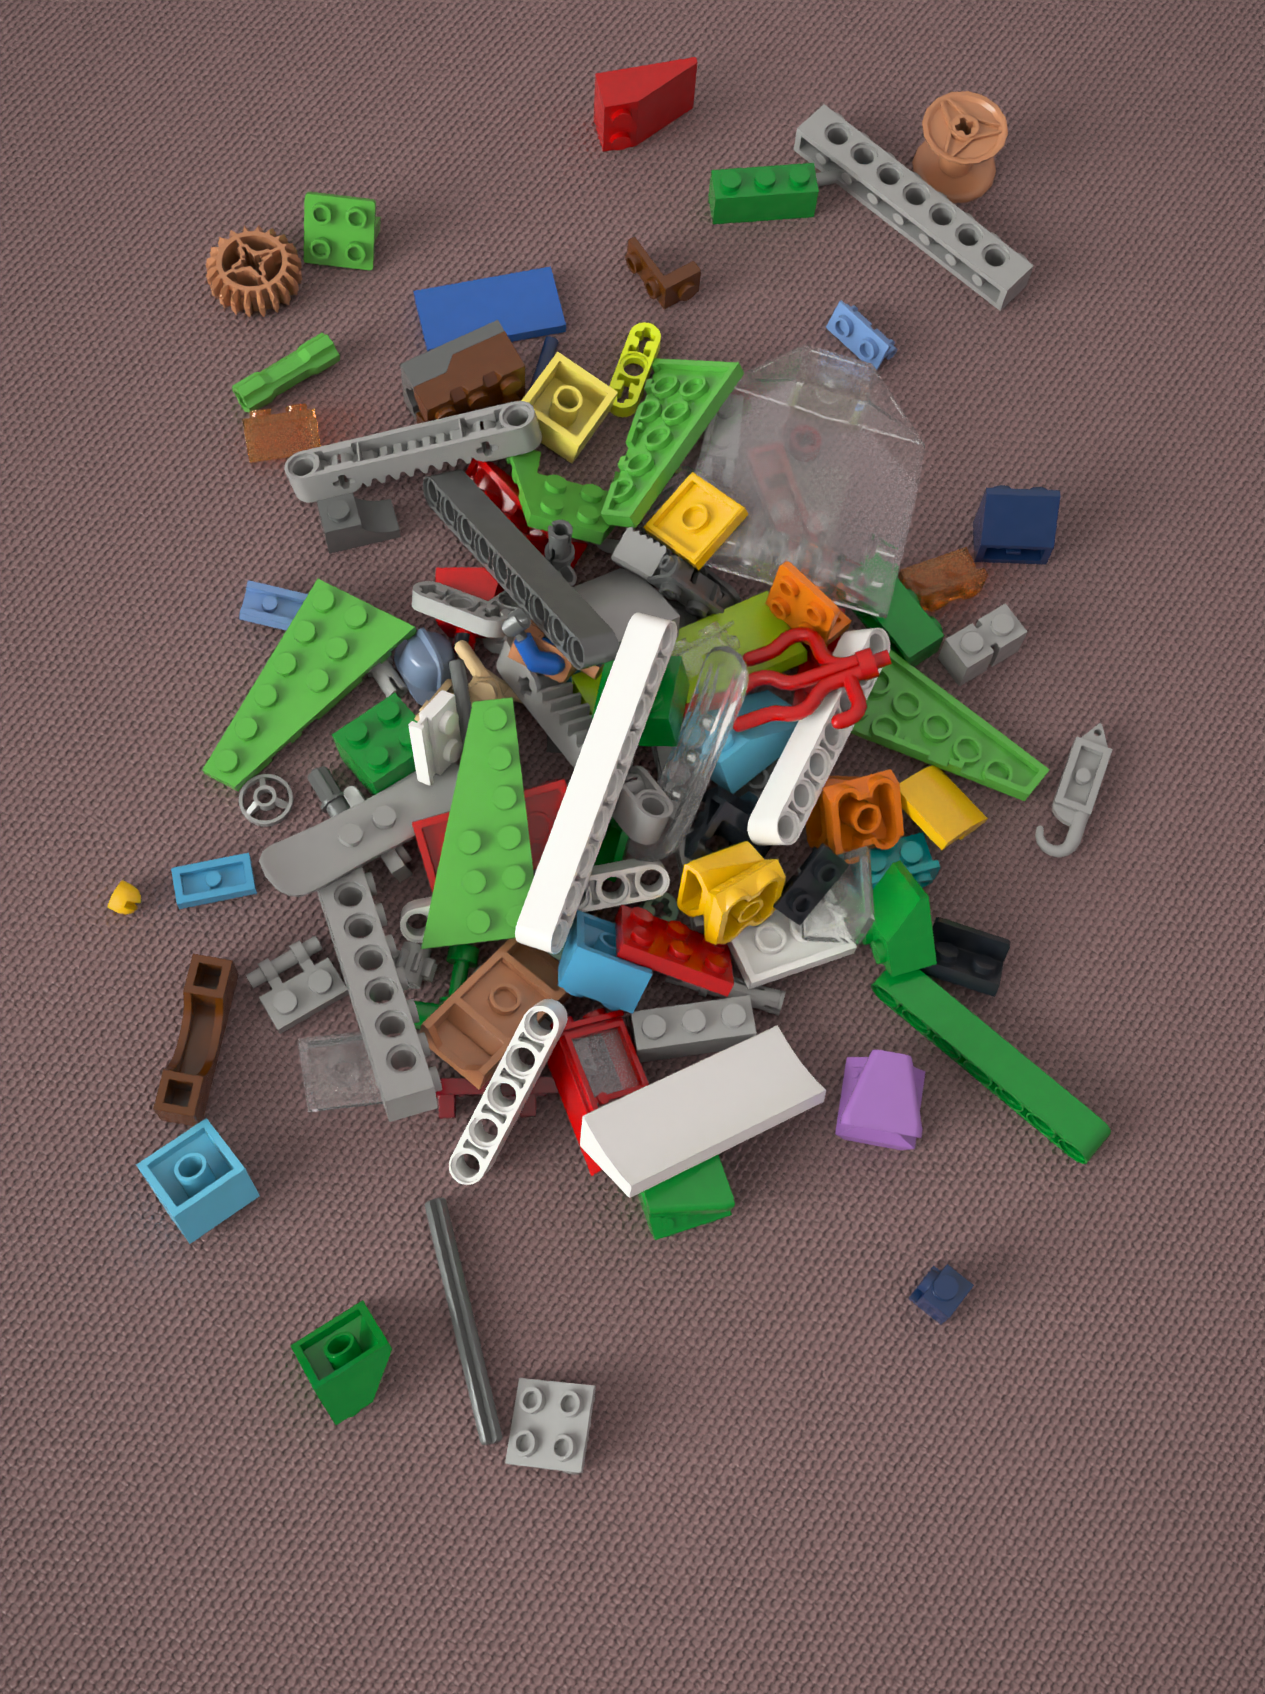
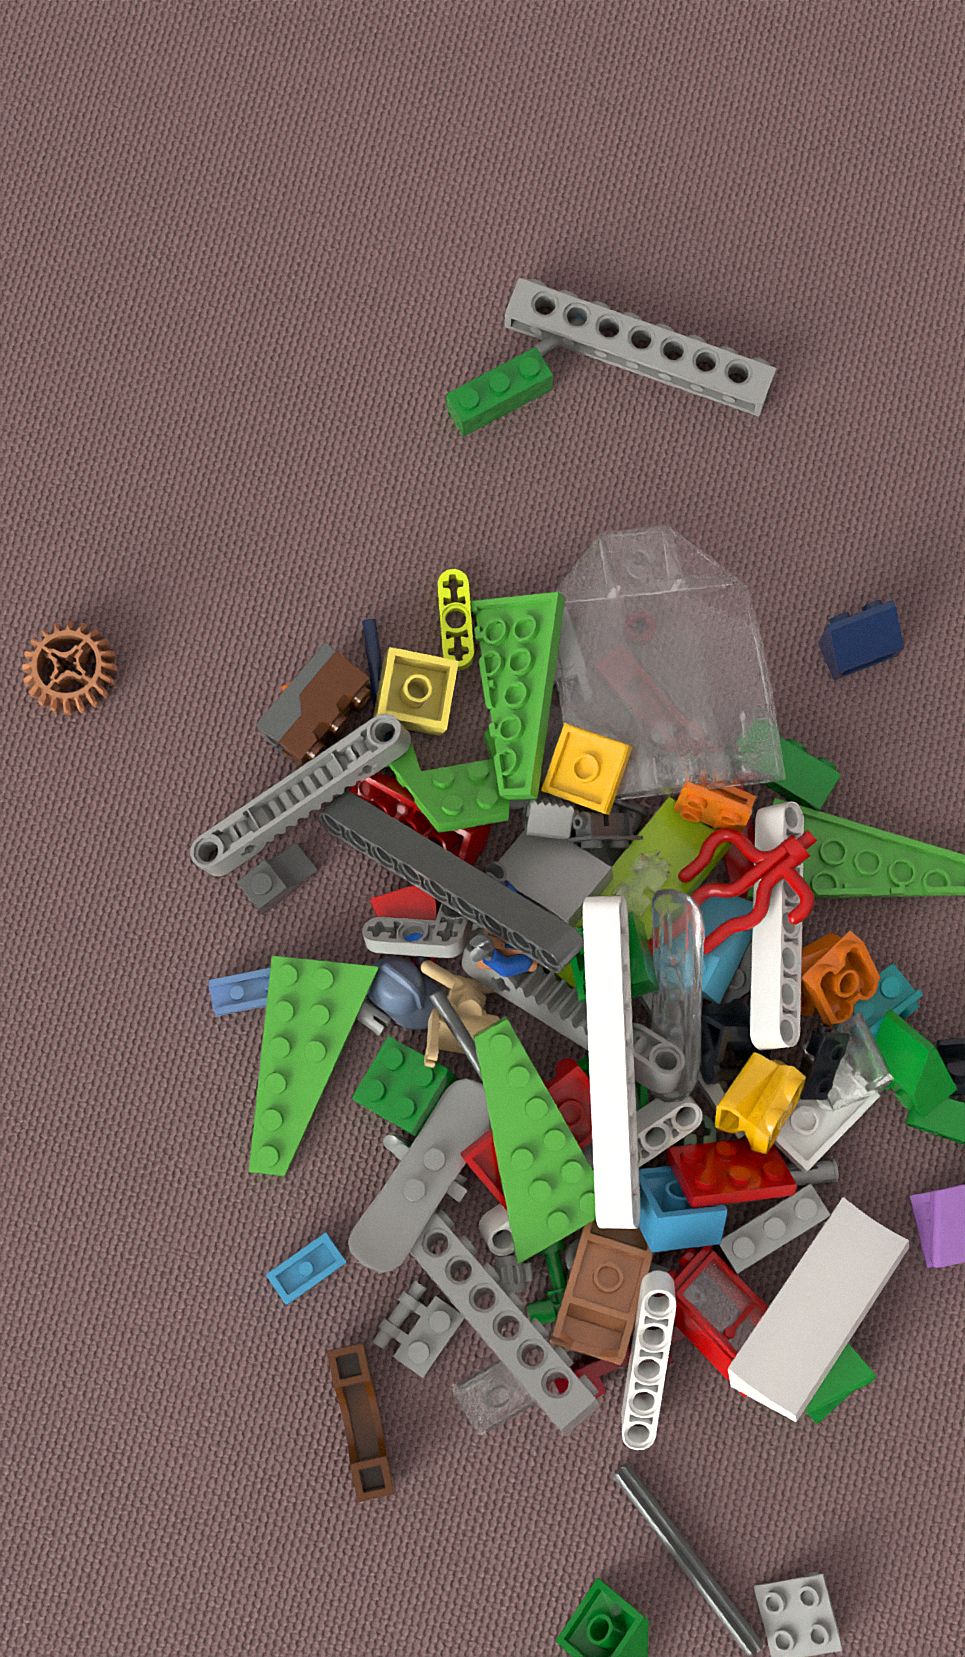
camera: 15 degrees left, 10 degrees up
(124, 898) = (237, 1317): yellow hinge -> none
(198, 1180) = (417, 1540): medium azure slope -> none
(263, 386) = (159, 736): bright green axle -> none
(275, 801) = (308, 1163): light grey piece -> none
(281, 434) = (169, 820): clear orange bracket -> none
(328, 791) = (371, 1148): dark grey axle -> none
(340, 230) = (131, 597): bright green bracket -> none
(436, 737) = (452, 1073): white plate -> none
(521, 301) = (300, 615): blue tile -> none
(559, 549) = (479, 853): dark grey pin -> none
(641, 101) = (344, 350): red slope -> none
(667, 289) = (463, 518): reddish brown bracket -> none
(859, 336) = (633, 494): medium blue hinge -> none
(939, 806) = (900, 937): yellow slope -> none
(944, 579) = (814, 712): clear orange bracket -> none
(960, 145) = (661, 270): nougat piece -> none
(971, 651) = (874, 770): light grey piece -> none

